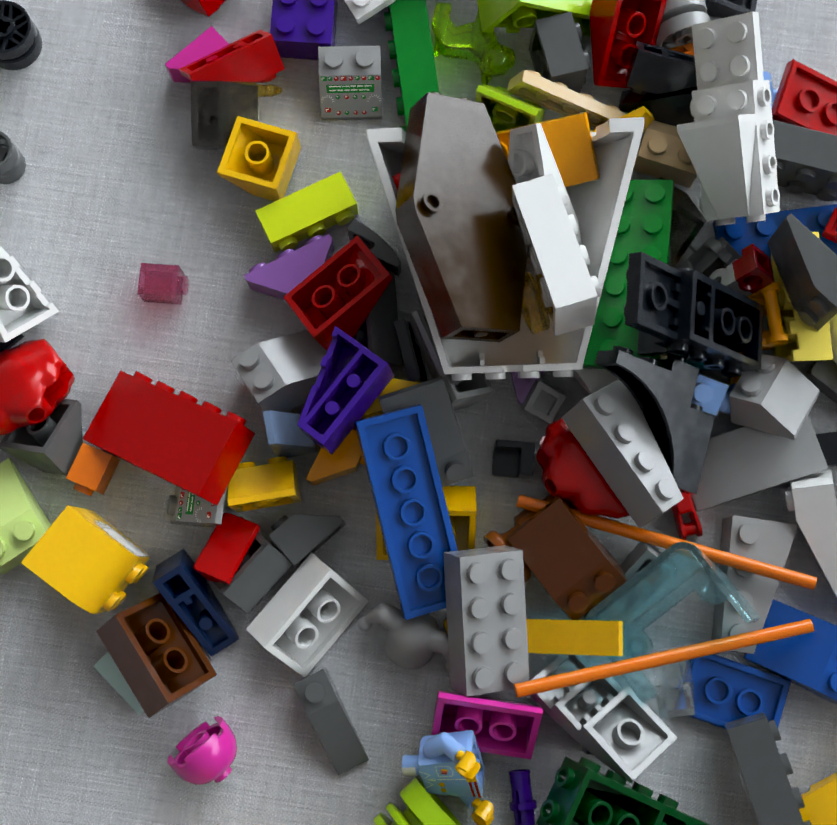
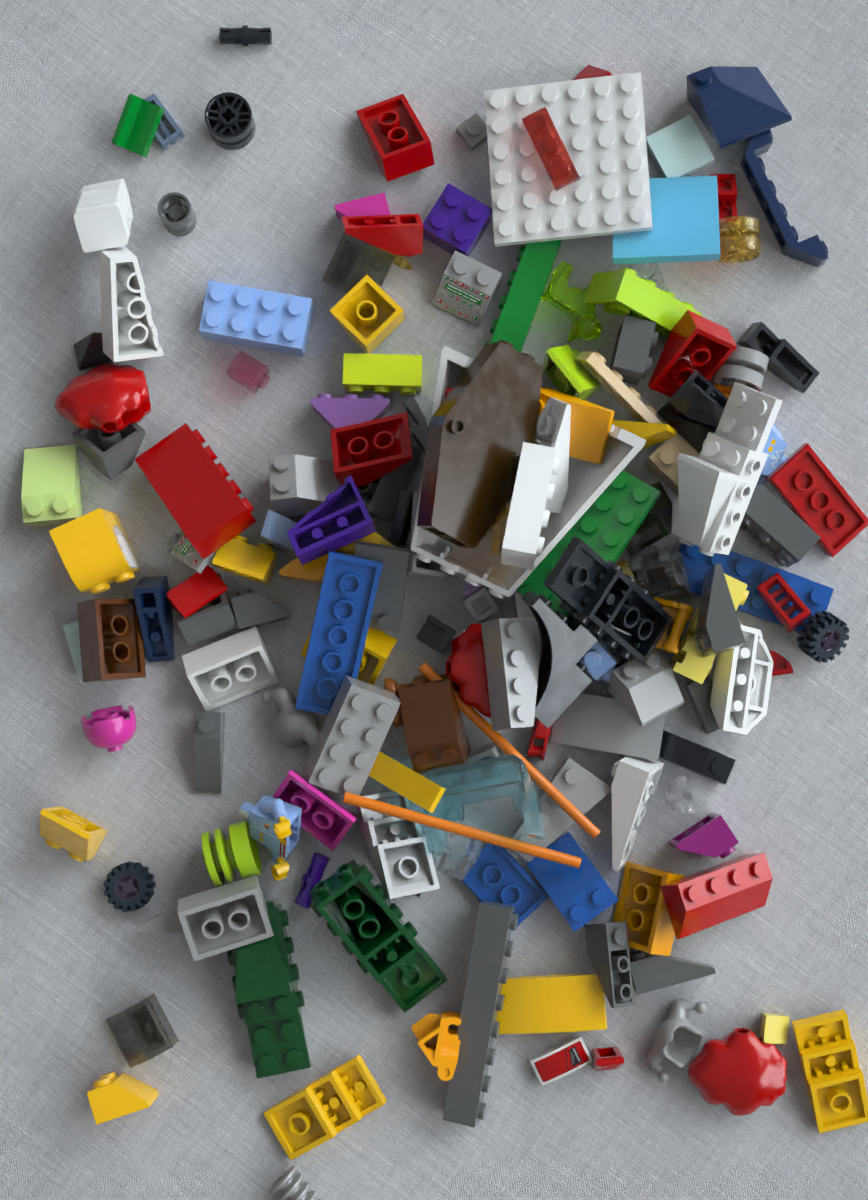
camera: 30 degrees right, 5 degrees up
(92, 470) = (130, 485): orange brick -> none
(140, 223) = (256, 318): none -> light blue brick
(747, 273) = (671, 589): dark red leg -> none

